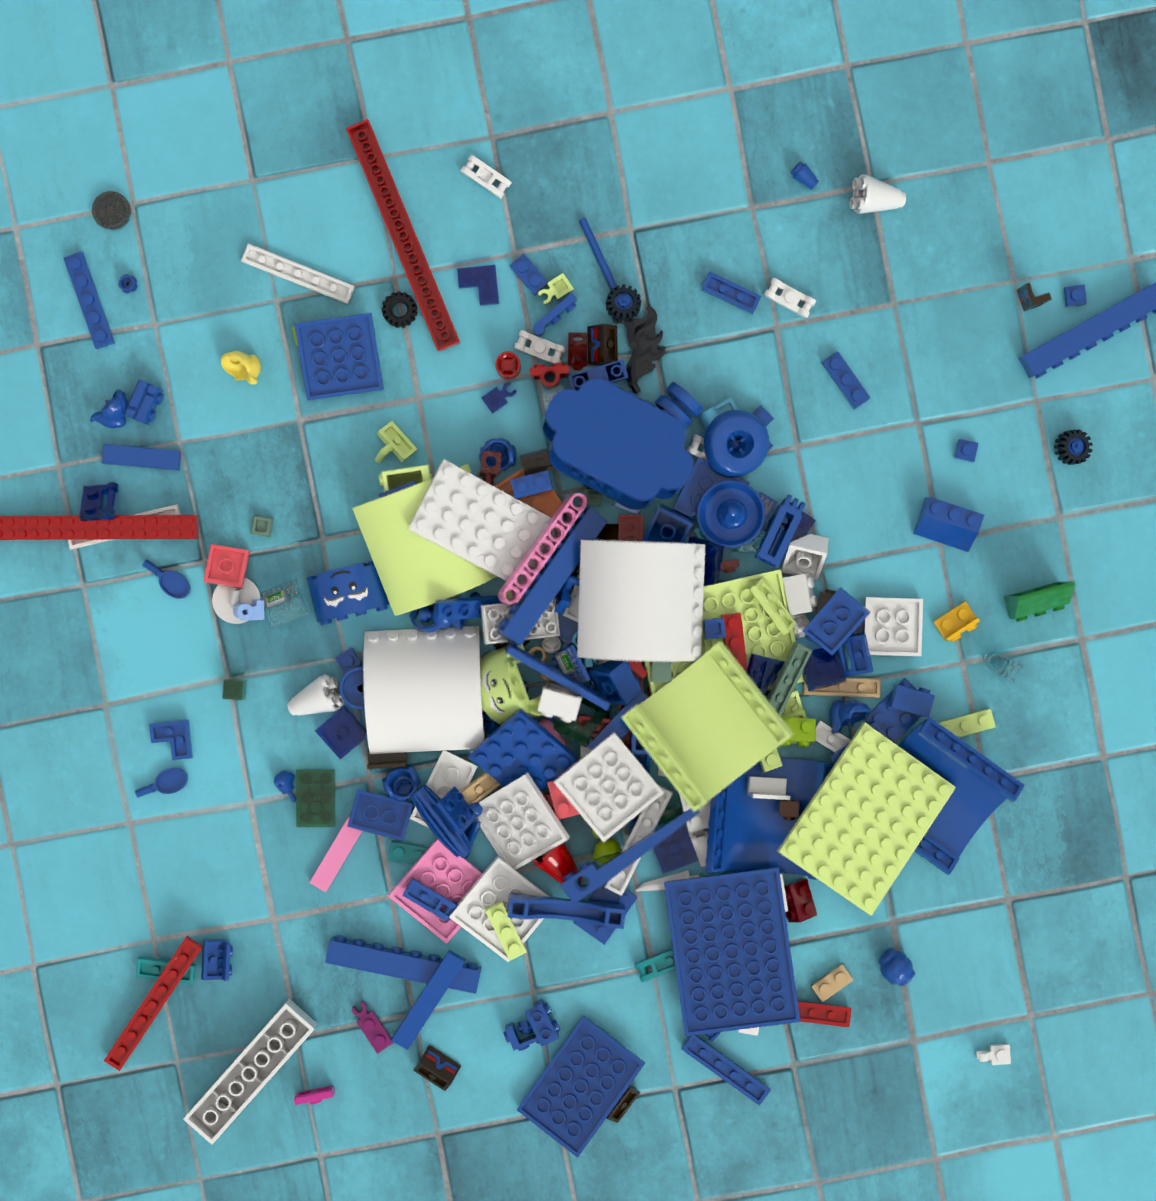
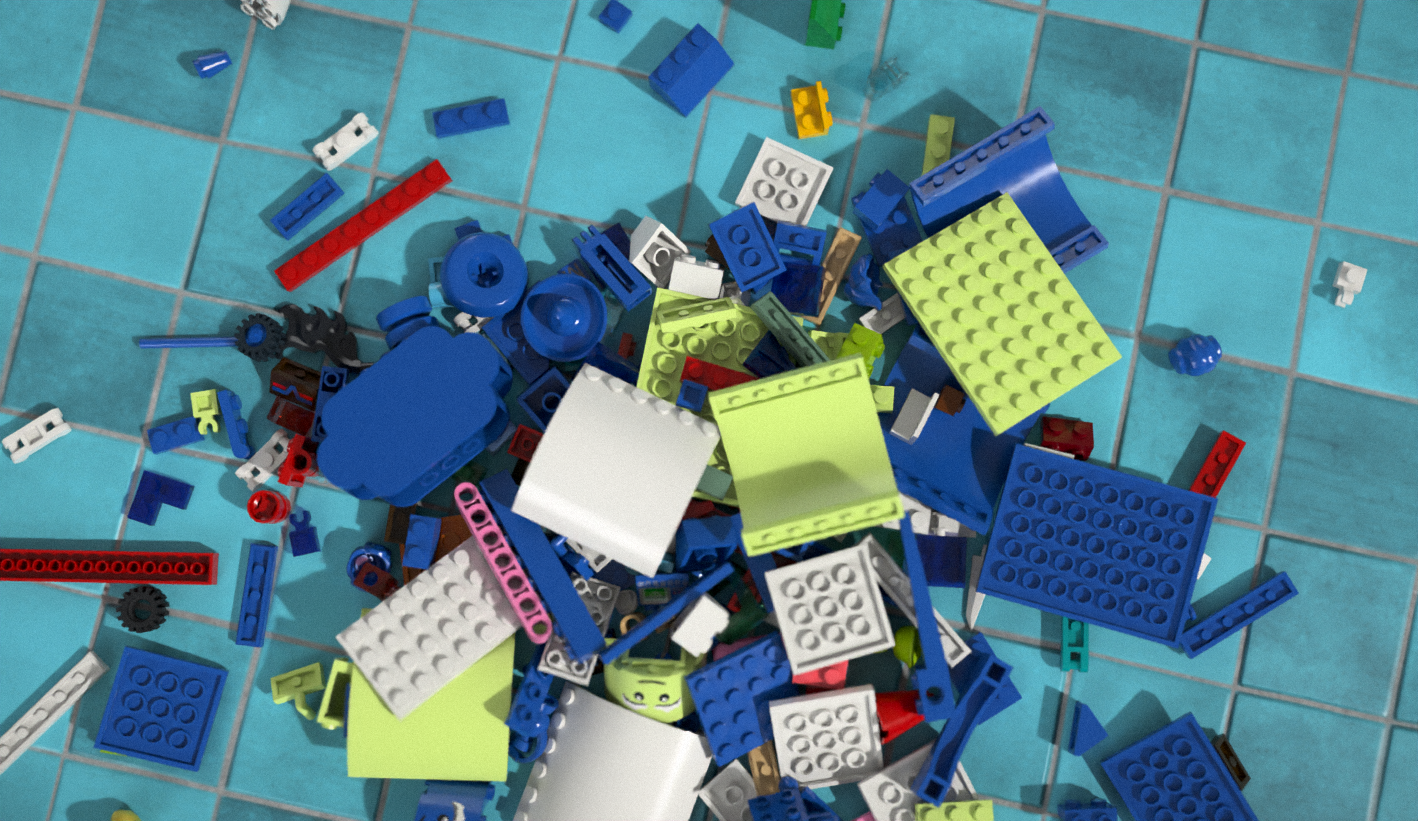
camera: 65 degrees left, 5 degrees down
(443, 383) = (256, 595): none -> blue tile
(601, 996) = (1085, 730): none -> blue slope
(735, 338) = (363, 225): none -> red plate
(832, 982) = (1182, 440): tan plate -> none

